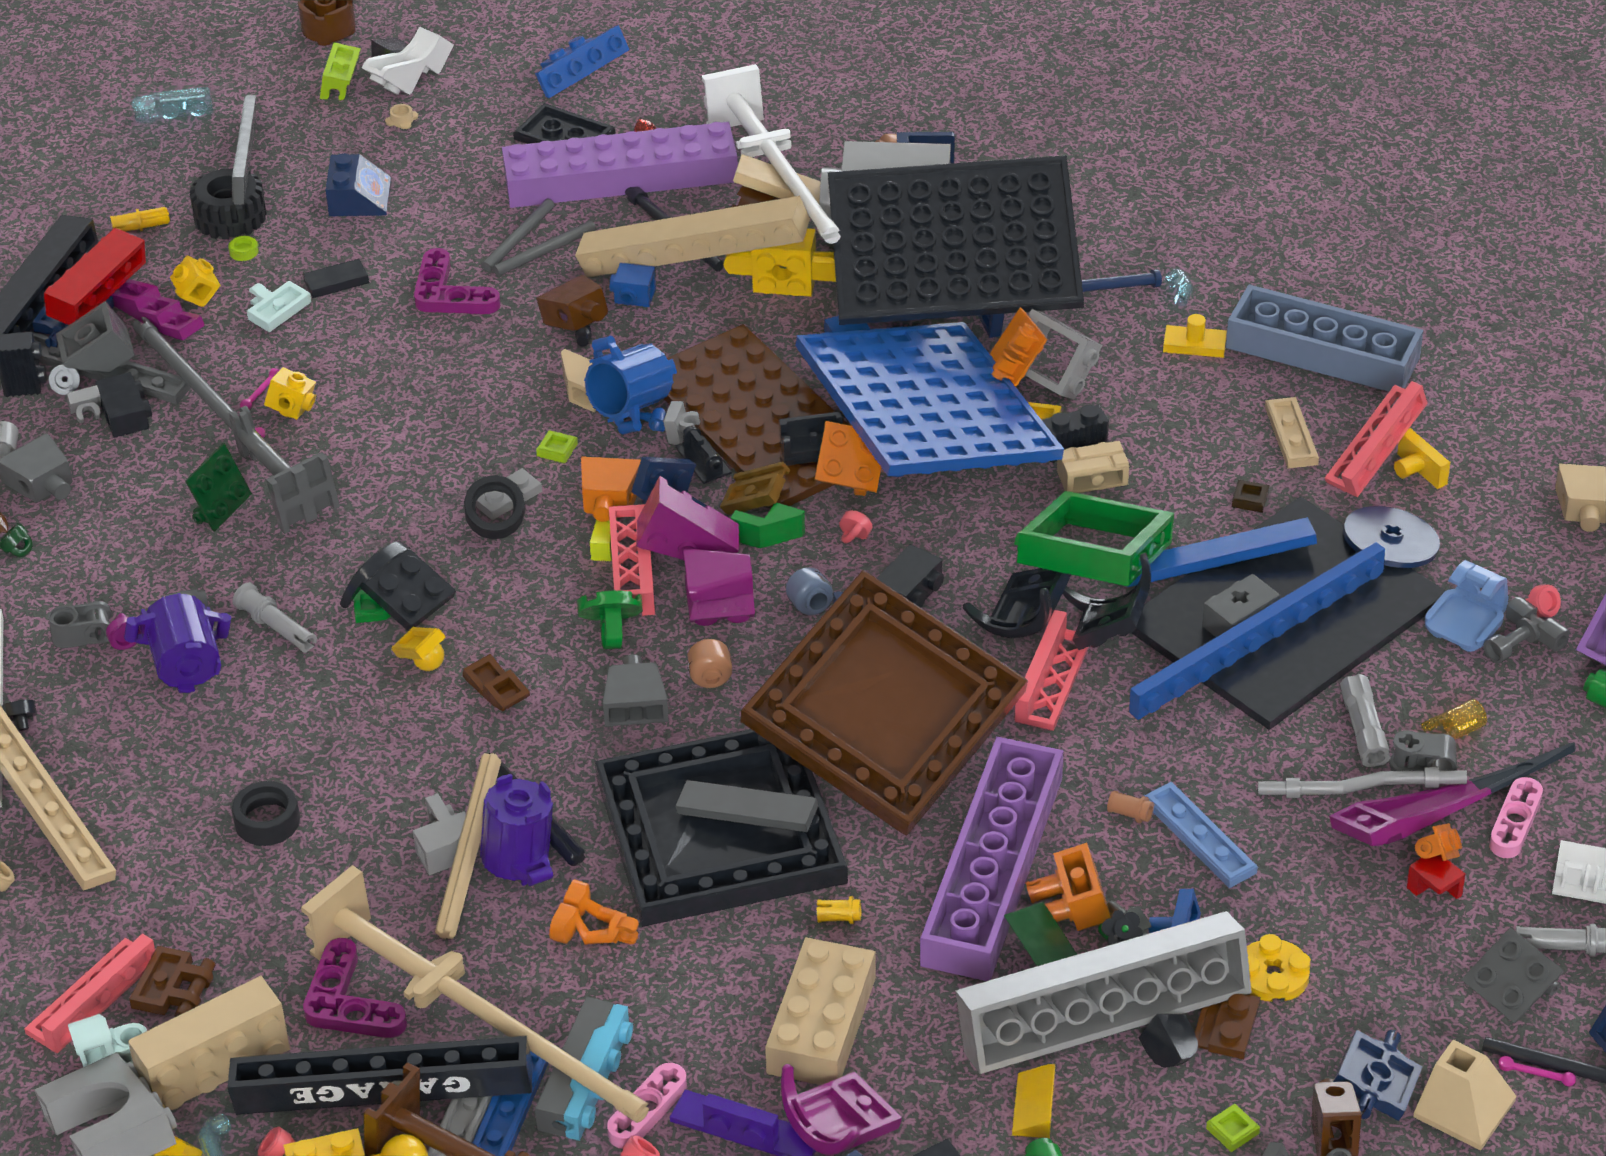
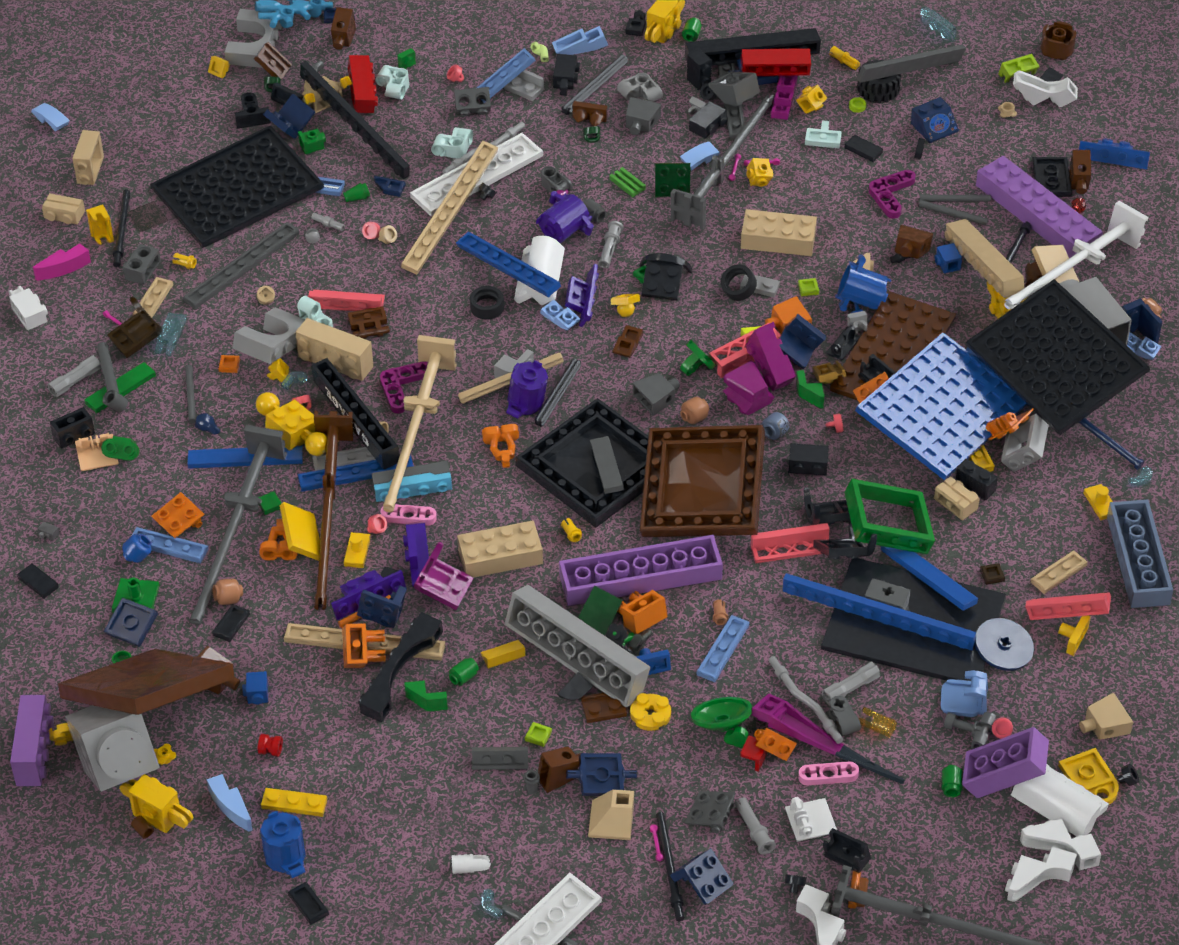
camera: 60 degrees right, 5 degrees up
(157, 546) = (629, 180): none -> bright green tile
(186, 443) = (699, 154): none -> light blue slope
(222, 744) = (508, 264): none -> blue tile
(259, 721) = (546, 256): none -> white brick
(357, 690) = (580, 295): none -> dark purple bracket
(379, 737) = (558, 315): none -> light blue slope
(394, 223) = (919, 148): none -> black tile
(428, 426) = (778, 232): none -> tan brick
(593, 95) = (1080, 178): none -> reddish brown torso
(1344, 879) = (721, 713): none -> green dish
(1393, 886) = (736, 737): none -> green tile

